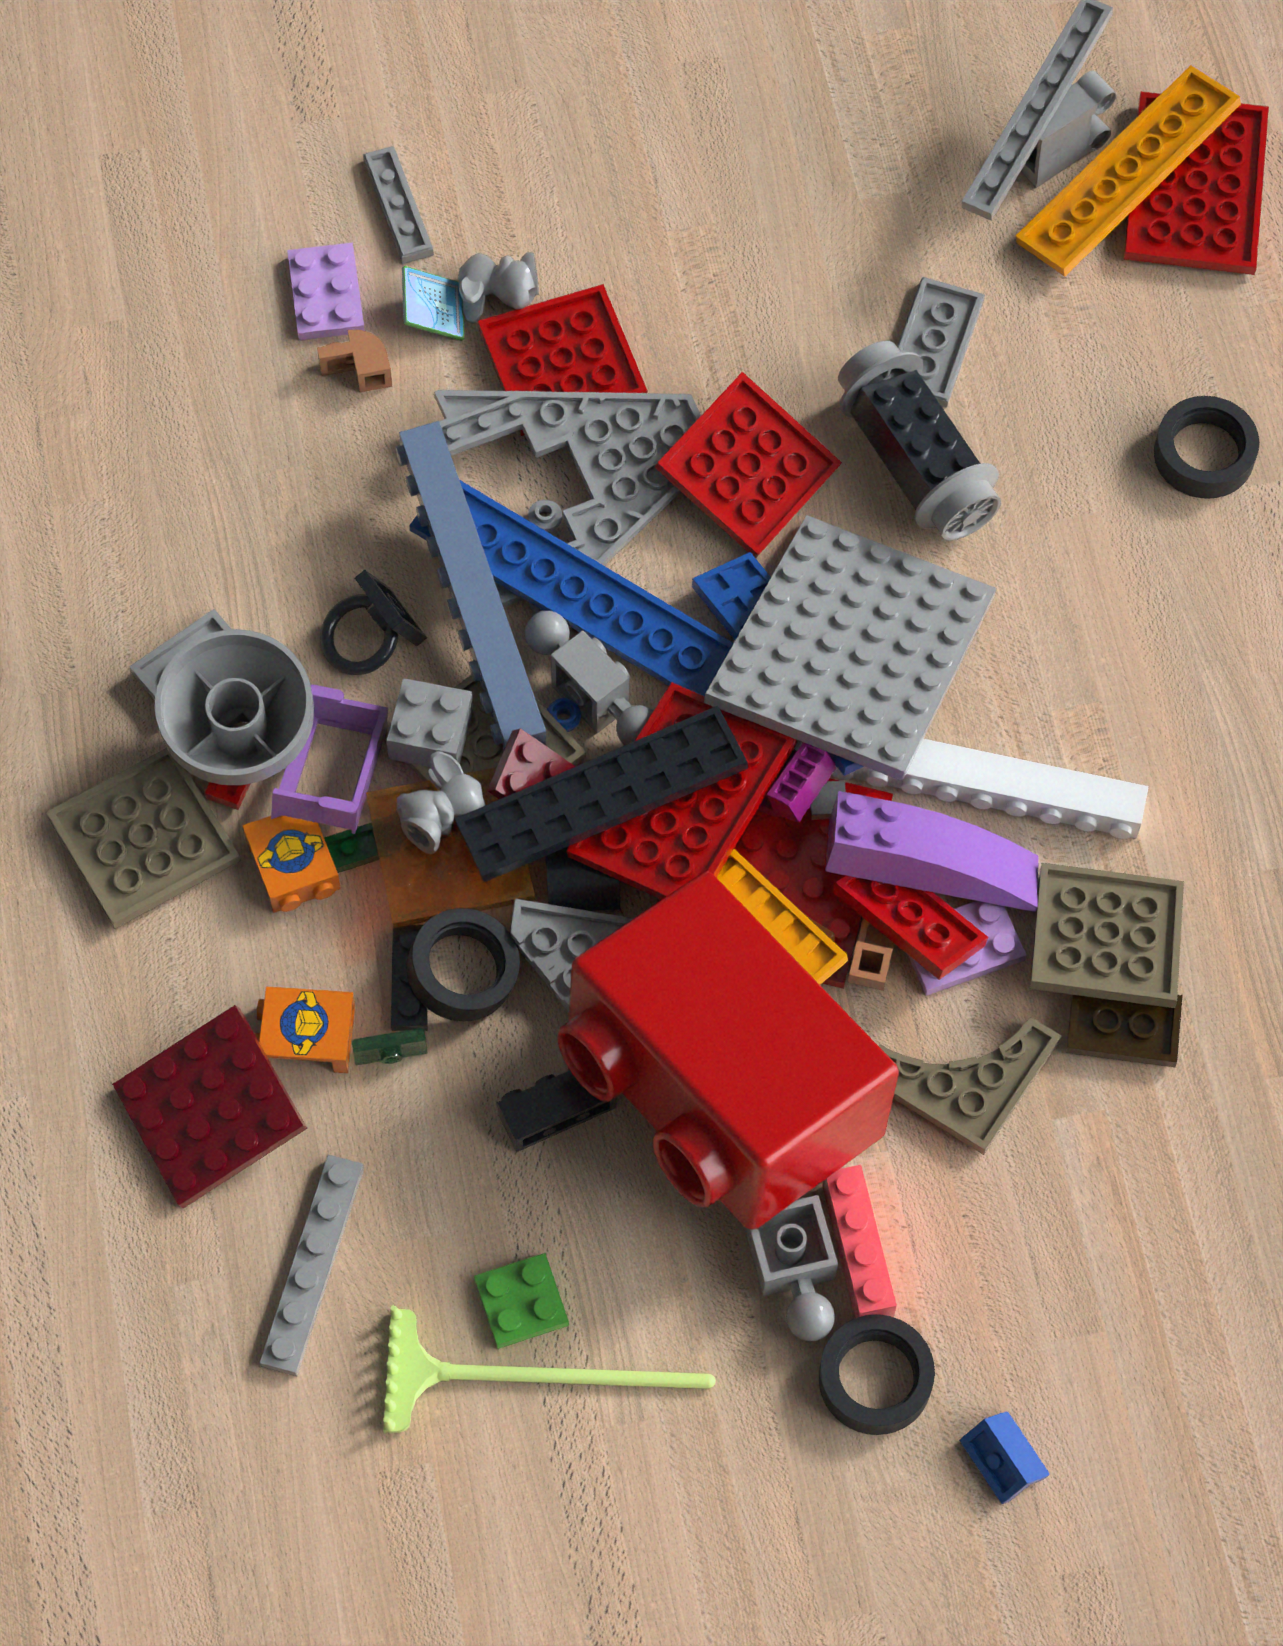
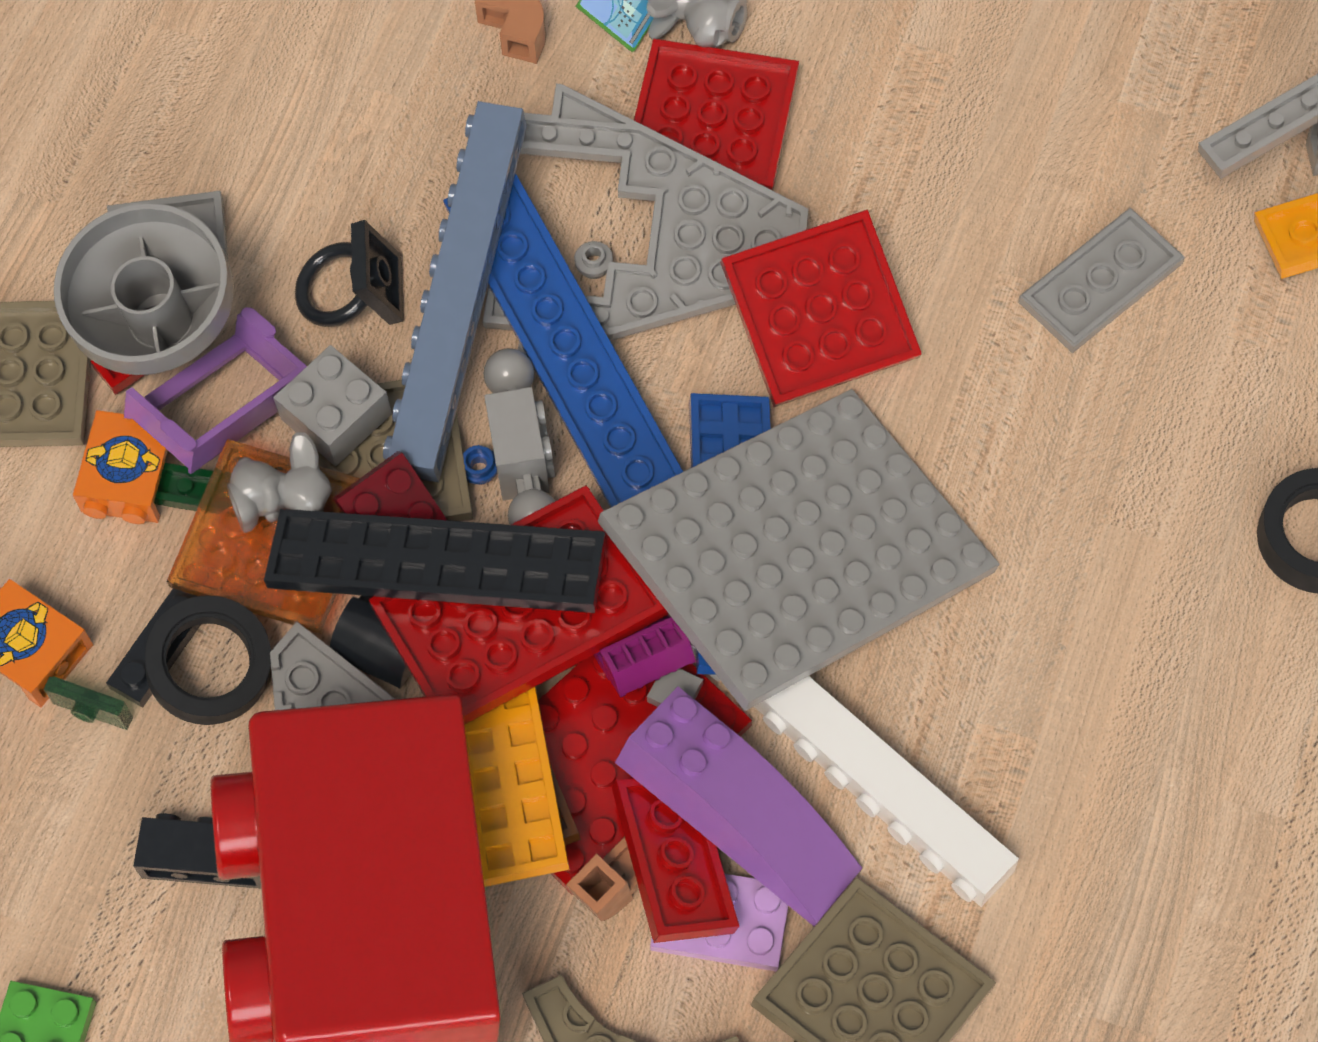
camera: 35 degrees right, 0 degrees up
(918, 441) = (1006, 370): brick -> none

